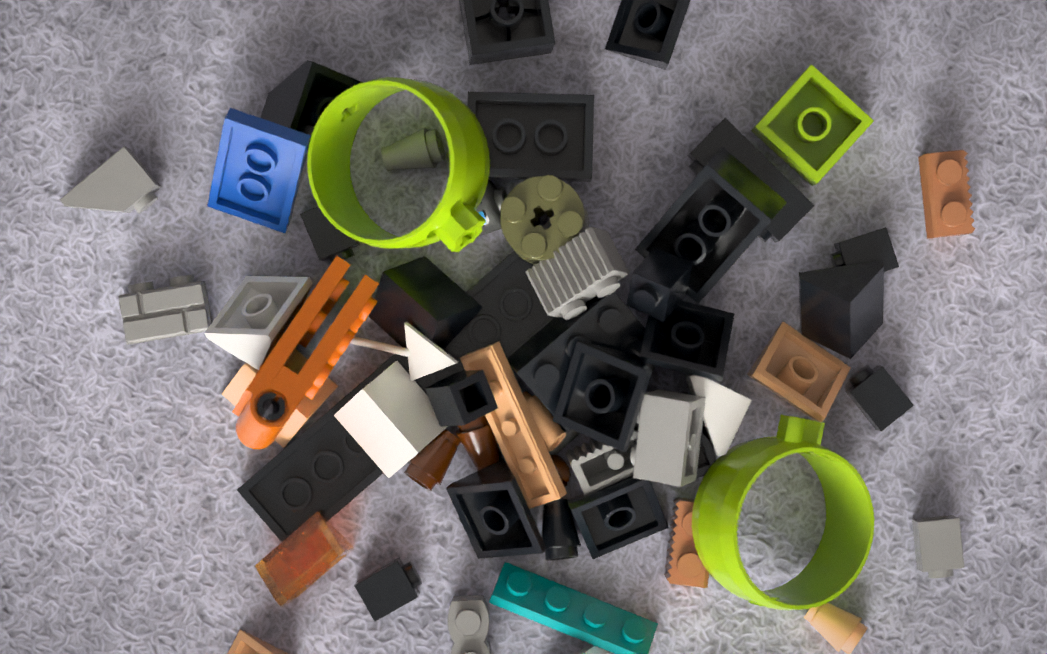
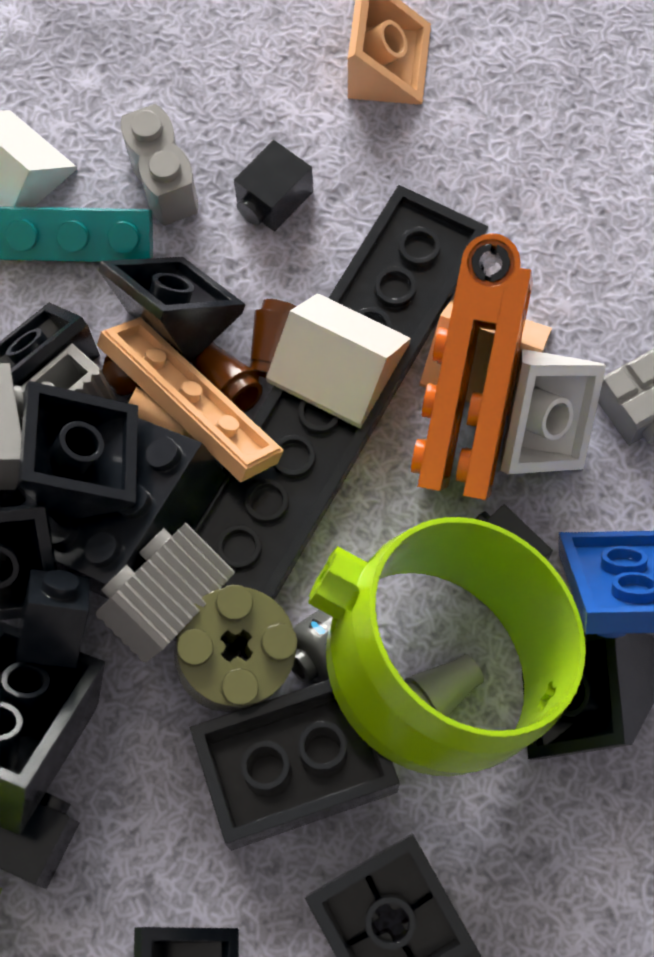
camera: 160 degrees right, 20 degrees down
(302, 559) = (378, 170): clear orange slope -> none
(422, 353) = (331, 431): white piece -> none
(424, 299) = (350, 495): black slope -> none
(461, 398) = (261, 396): black brick -> none
(559, 531) = (94, 302): black cone -> none

